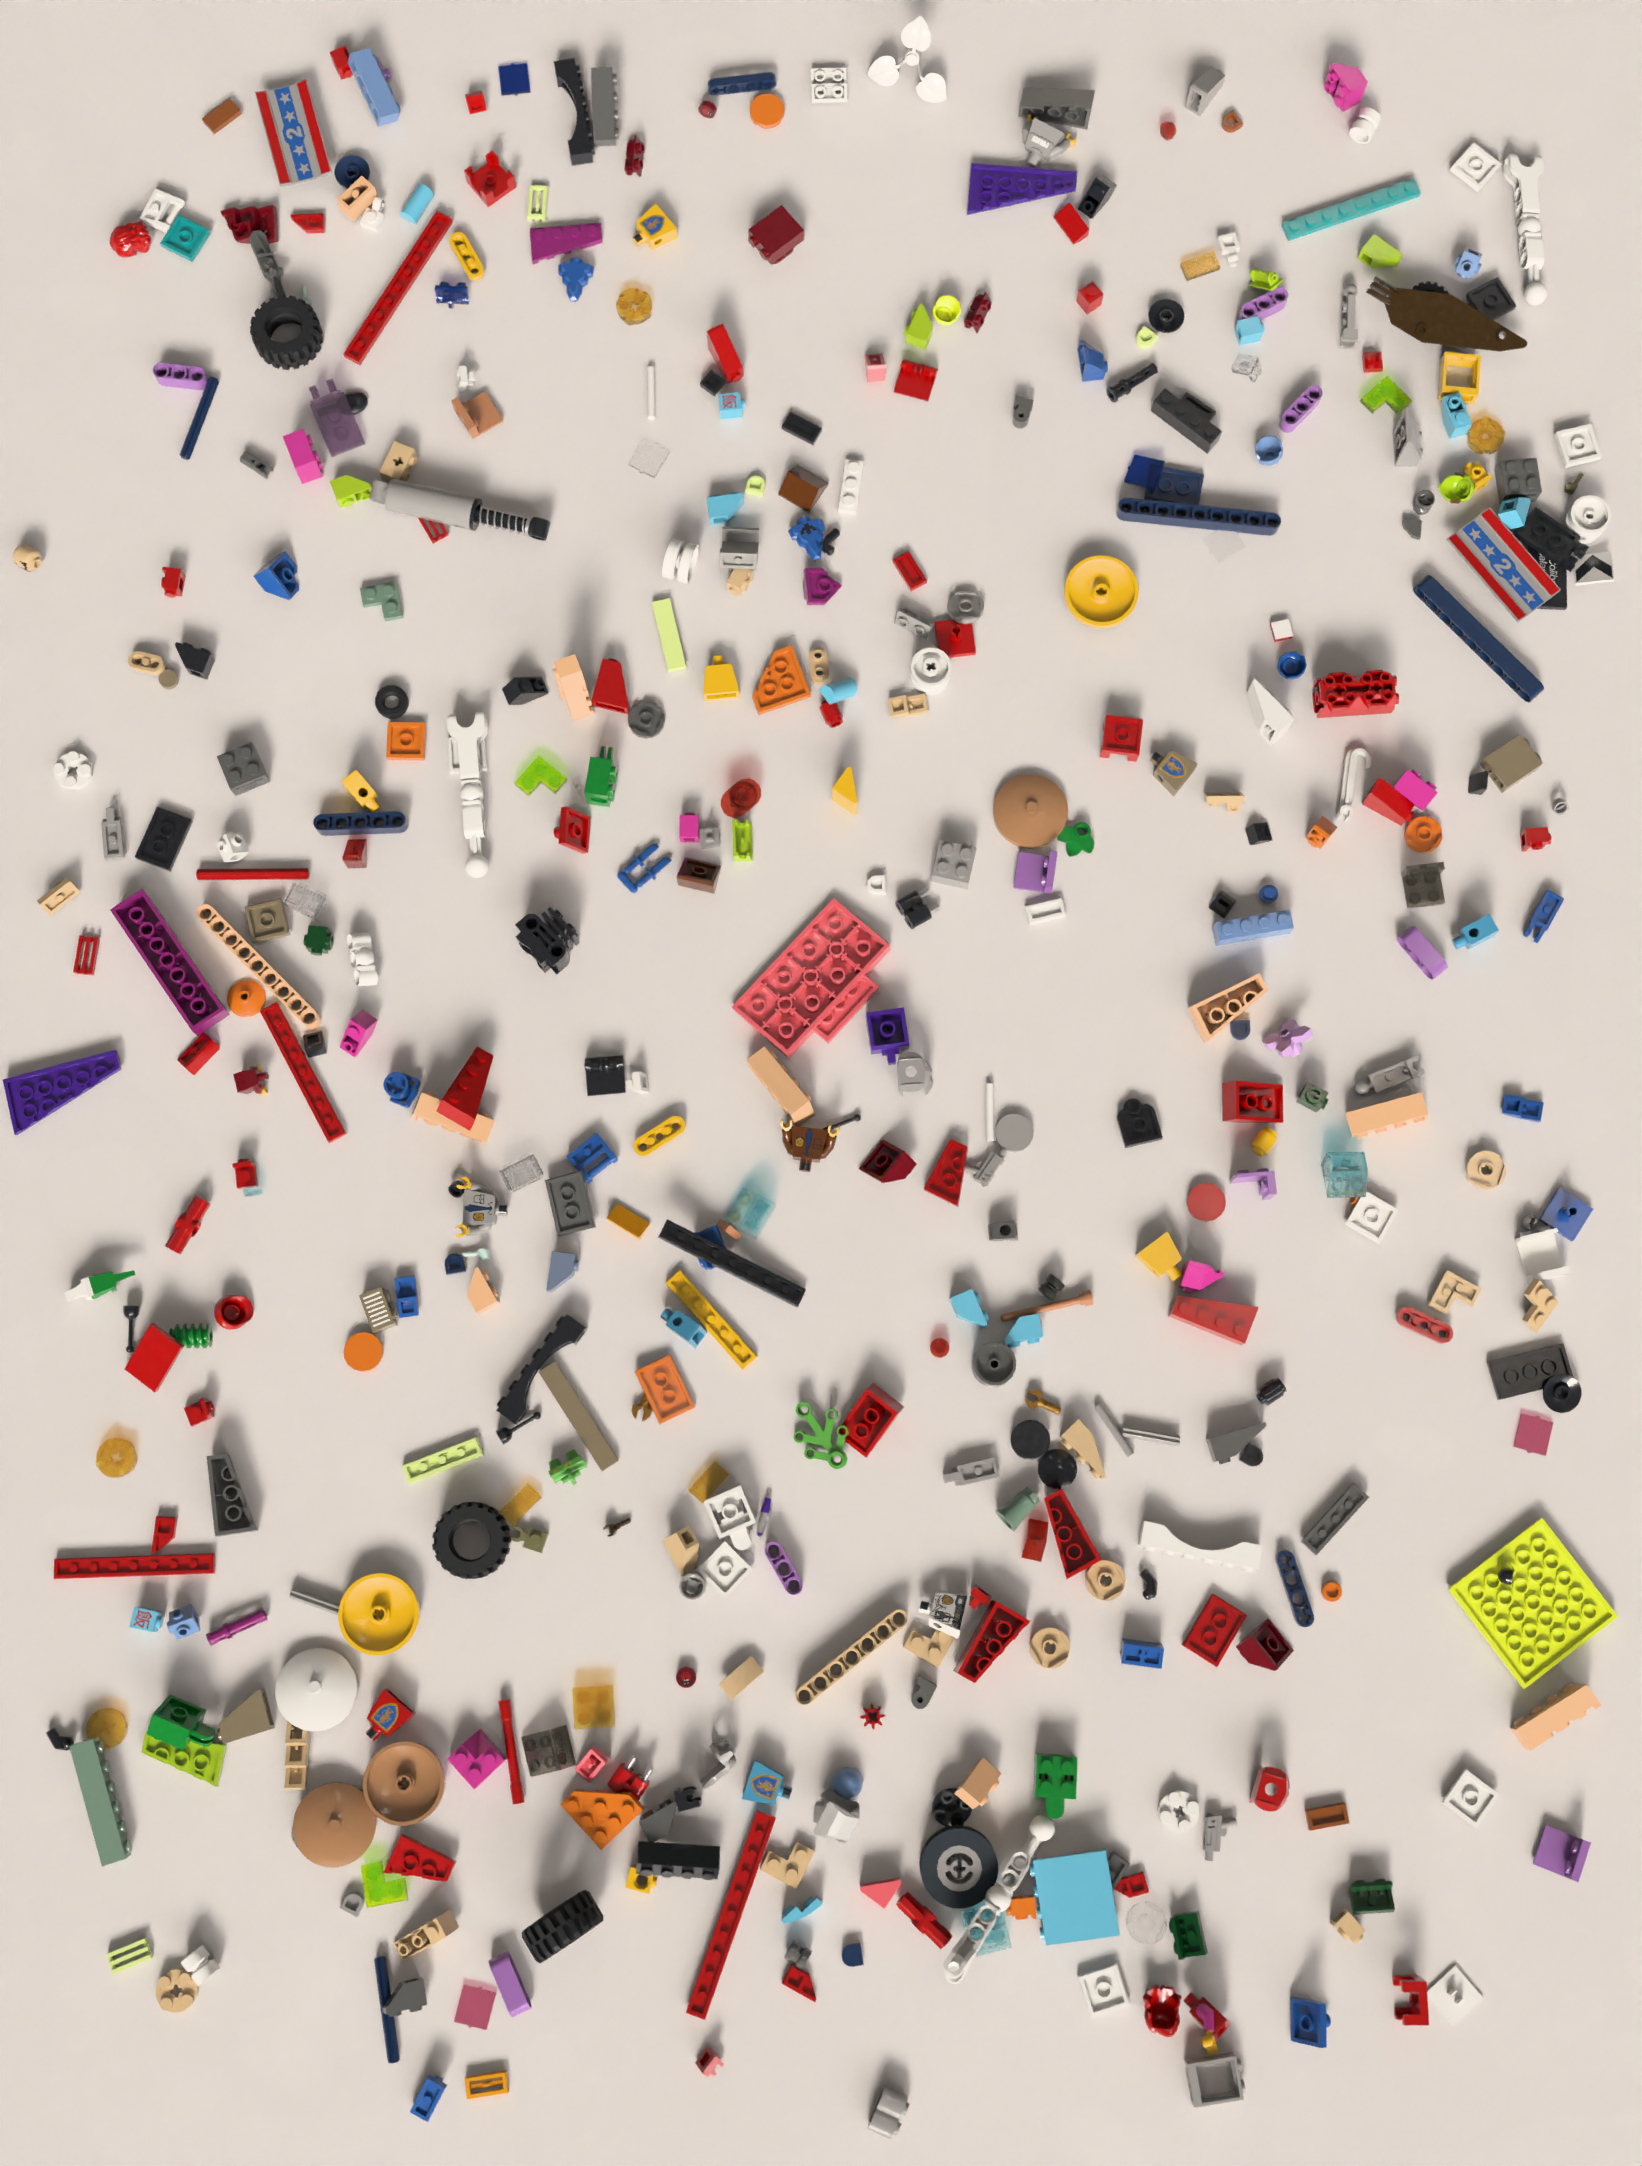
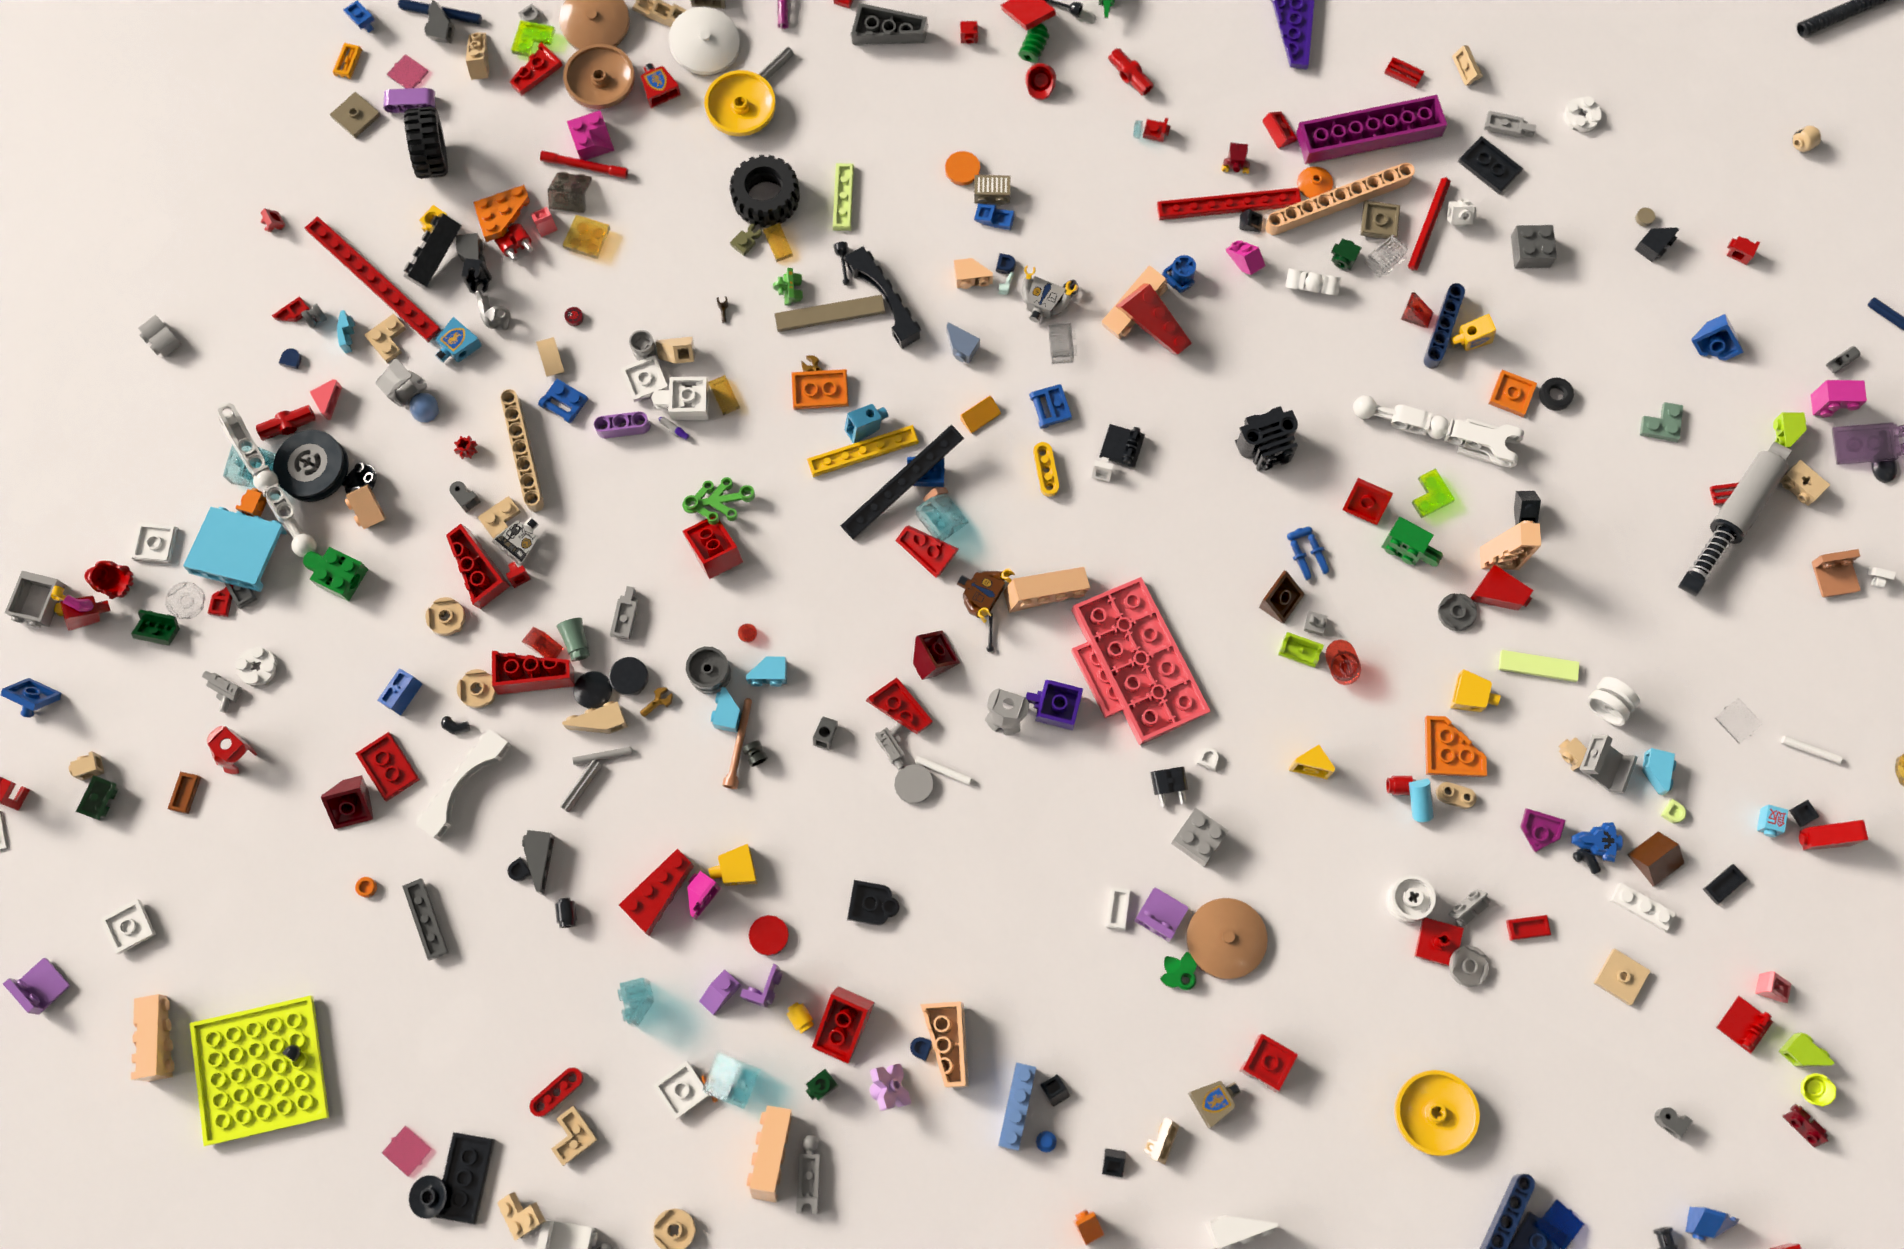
camera: 115 degrees right, 5 degrees down
(148, 663) = (1667, 202): tan plate -> none
(548, 2039) = (355, 114): none -> dark tan plate
(570, 1203) = (1017, 372): dark grey tile -> none
(689, 827) = (1332, 606): dark pink brick -> none
(775, 1639) = (565, 395): none -> blue plate
(788, 1213) = (927, 550): none -> red wing
(908, 706) = (1382, 865): tan slope -> none
(918, 485) = (1622, 977): none -> tan plate
(1274, 1221) = (719, 992): none -> medium lavender slope
(1292, 1589) = (384, 857): dark blue beam -> none
(1316, 1288) = (637, 1000): none -> clear light blue slope

